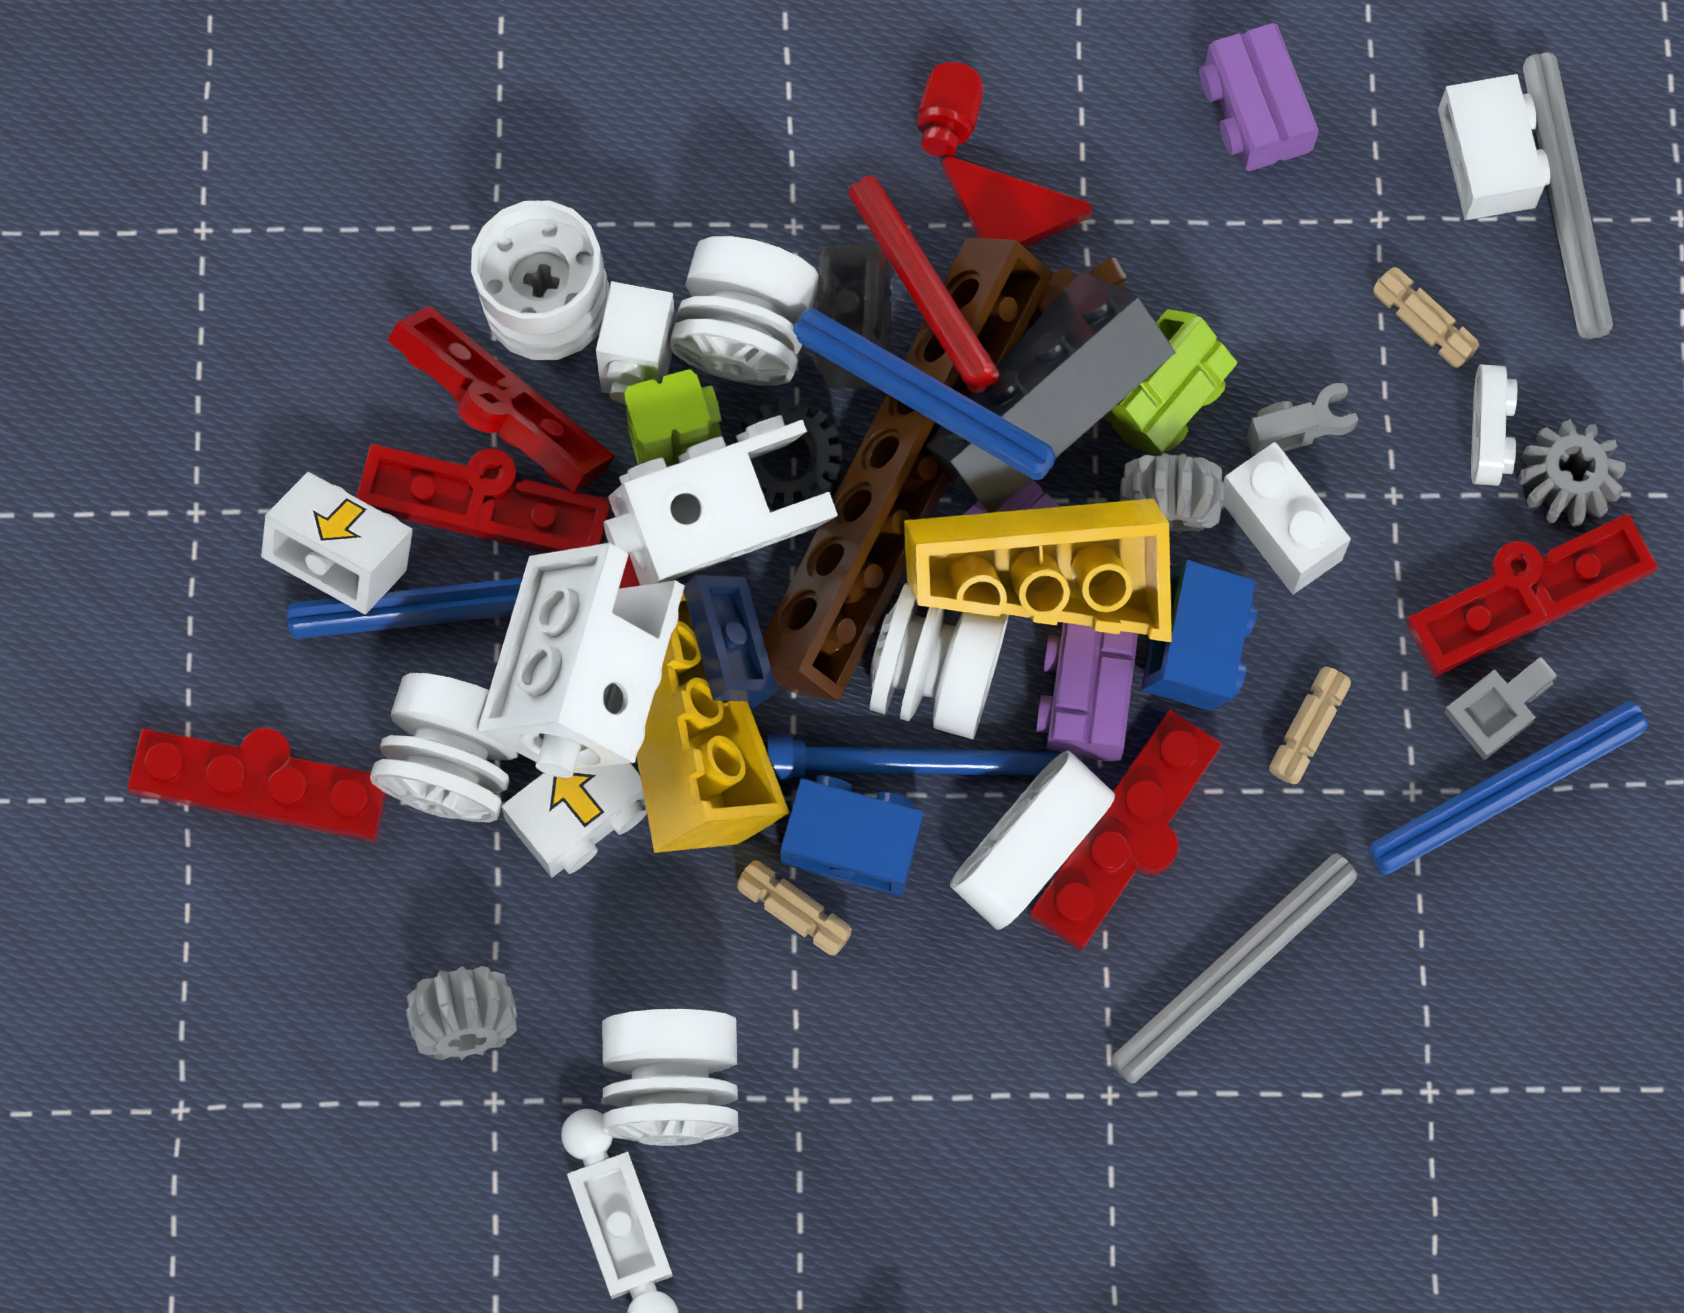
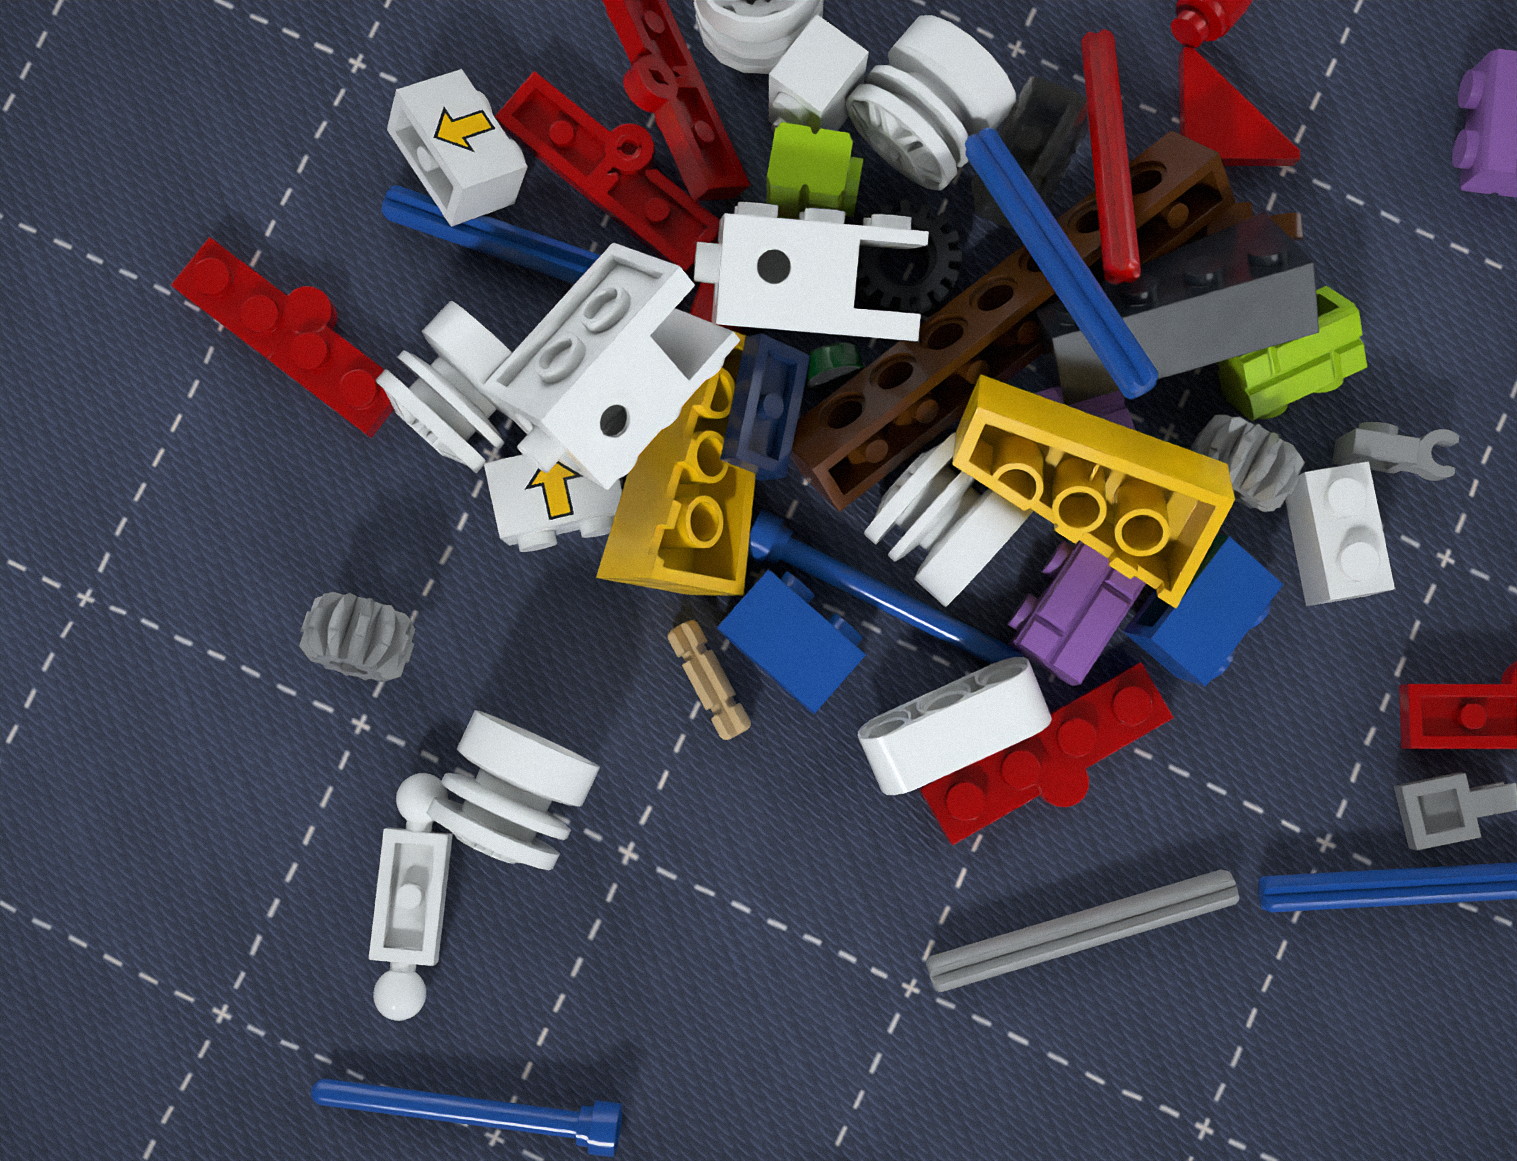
camera: 30 degrees right, 10 degrees up
(769, 578) = (832, 366): none -> dark green tile
(1310, 725) = (1263, 738): tan axle -> none

